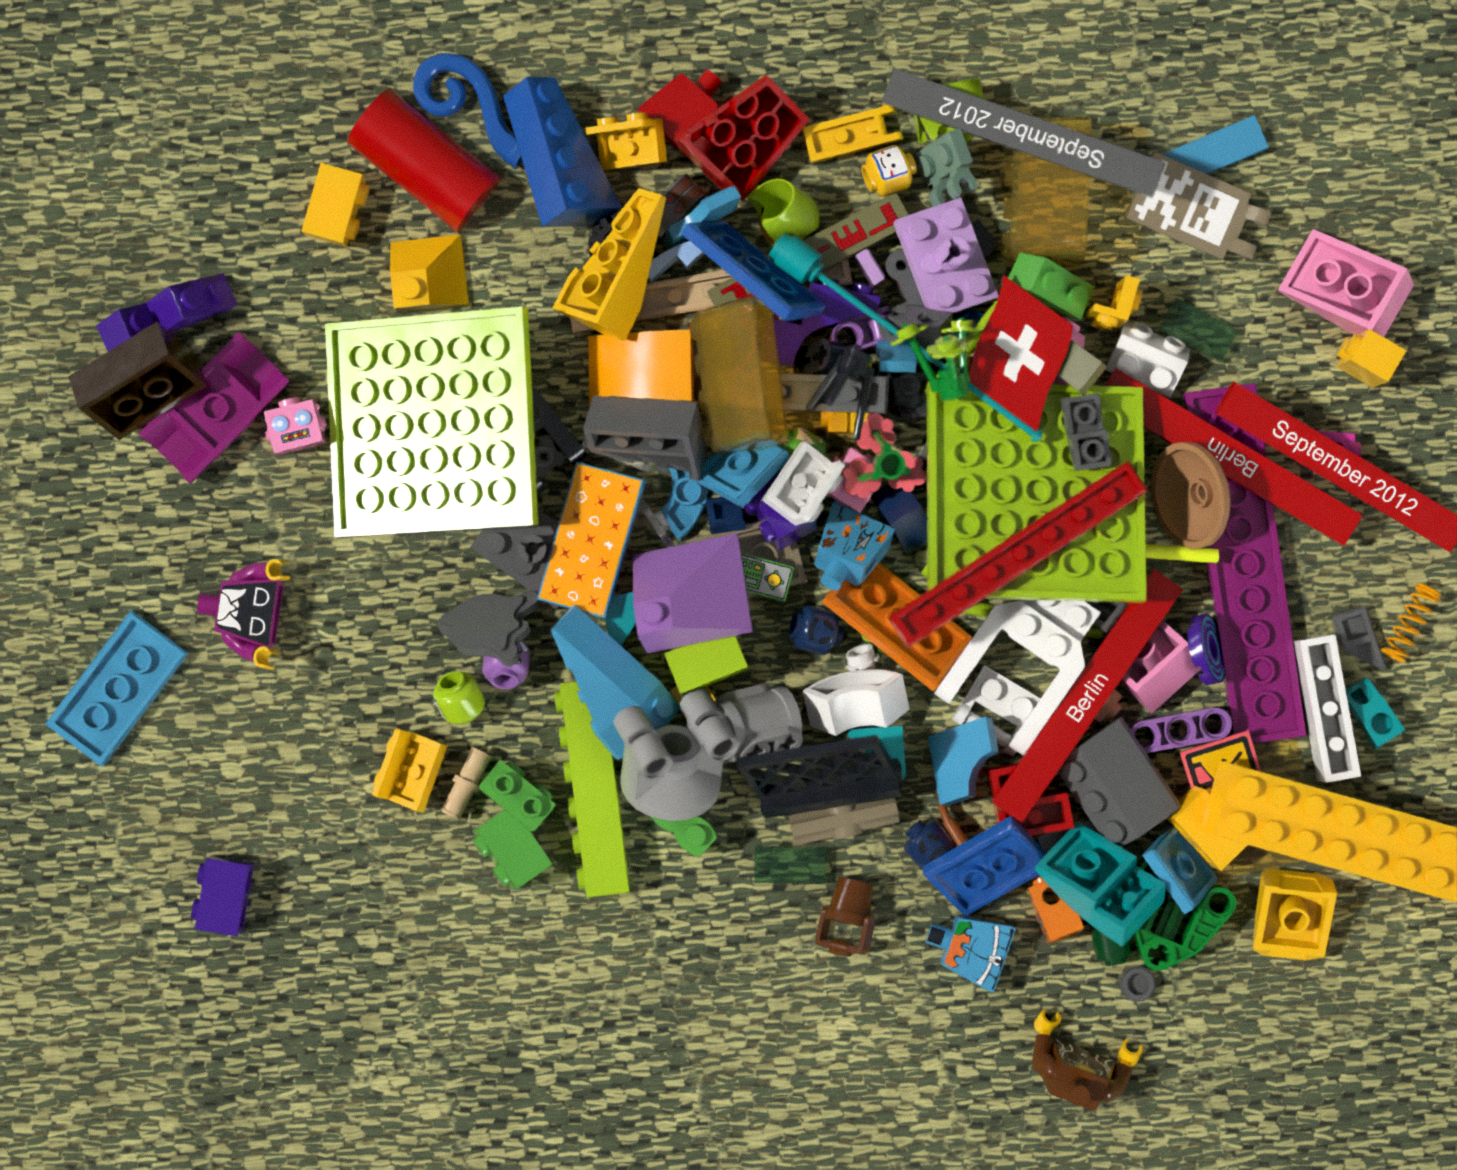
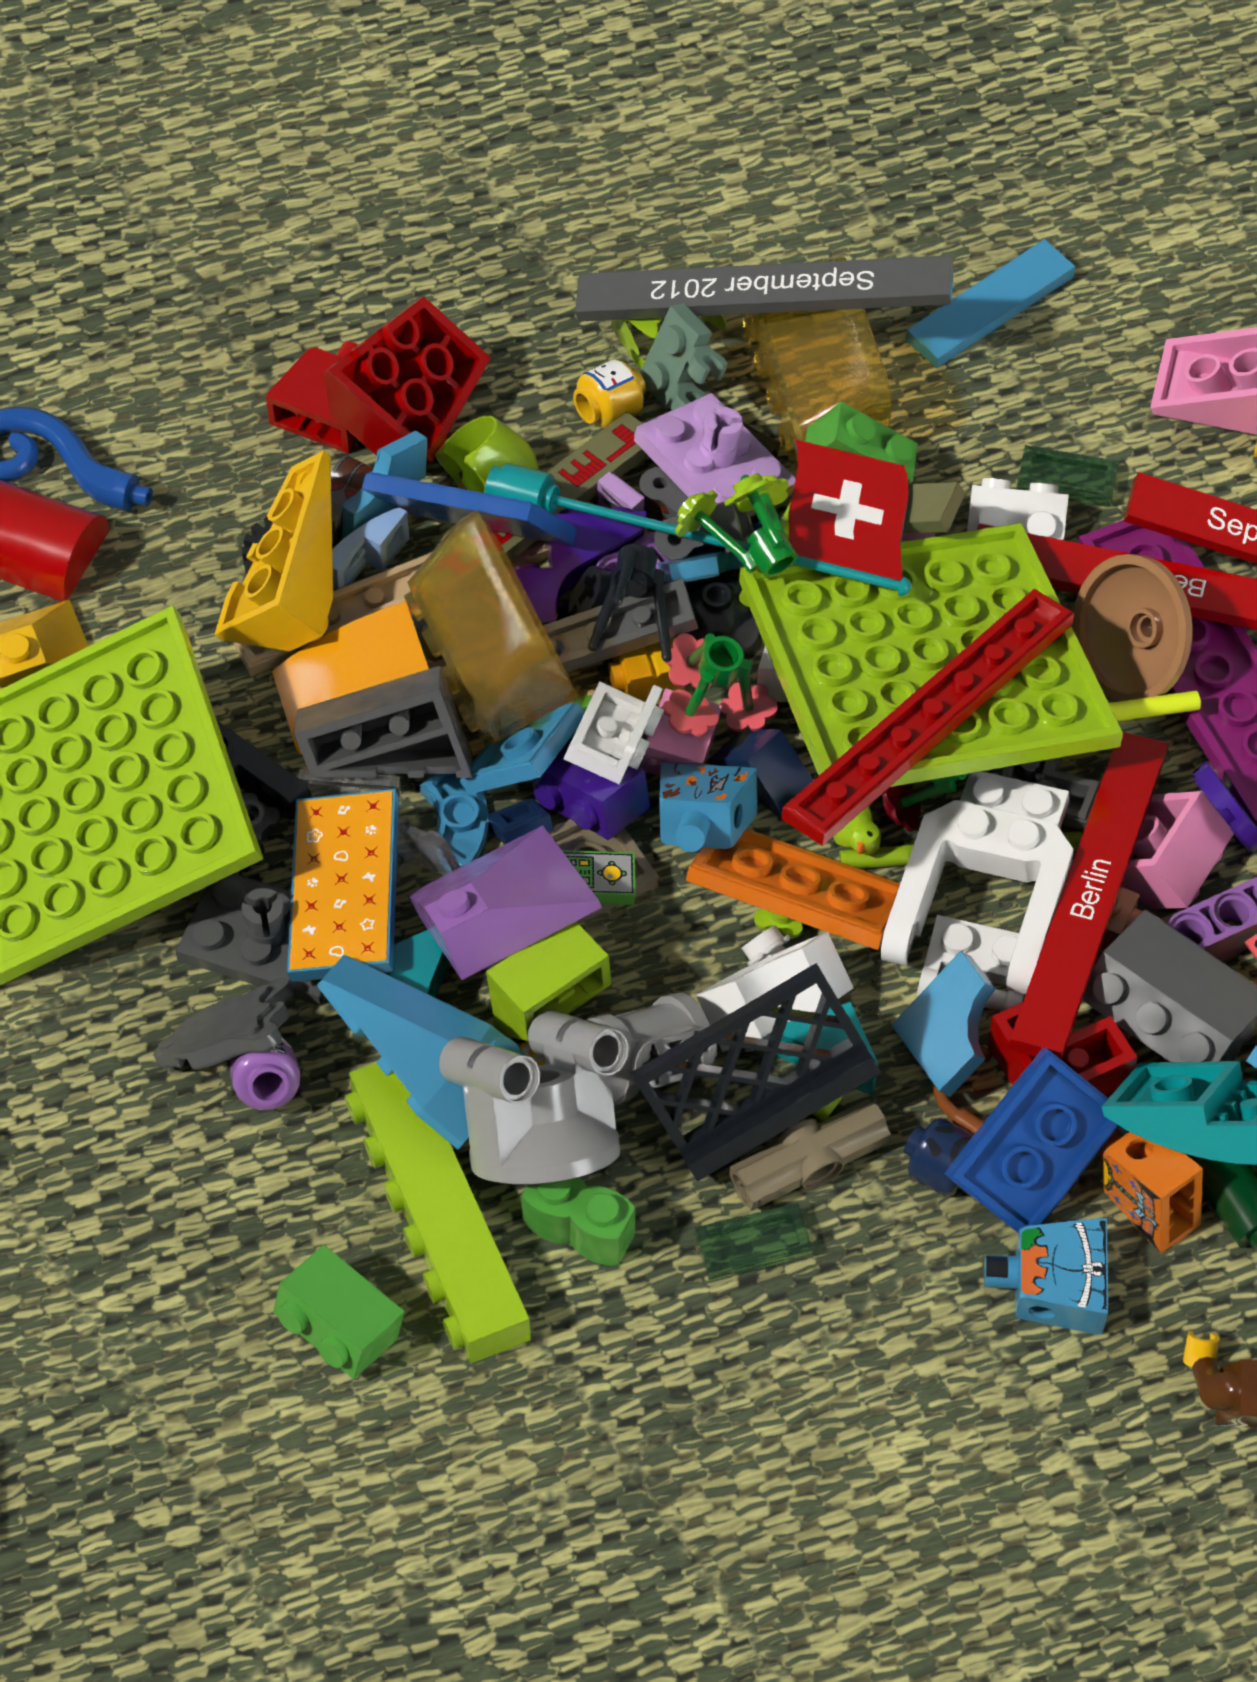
camera: 10 degrees left, 30 degrees down
(409, 769) = (159, 1252): yellow bracket -> none
(458, 697) = (208, 1135): lime head -> none
(466, 783) = (248, 1252): tan pin -> none
(516, 795) = (330, 1231): bright green bracket -> none
(557, 157) = (176, 470): blue wedge -> none
(629, 142) = (263, 432): yellow bracket -> none
(815, 630) = (690, 927): dark blue head -> none
(849, 134) = (543, 373): yellow hinge -> none
(851, 906) = (860, 1273): reddish brown piece -> none
(1085, 432) = (964, 573): dark grey slope -> none
(1124, 302) = (953, 456): yellow bracket -> none
(1197, 211) = (1014, 346): dark tan tile -> none

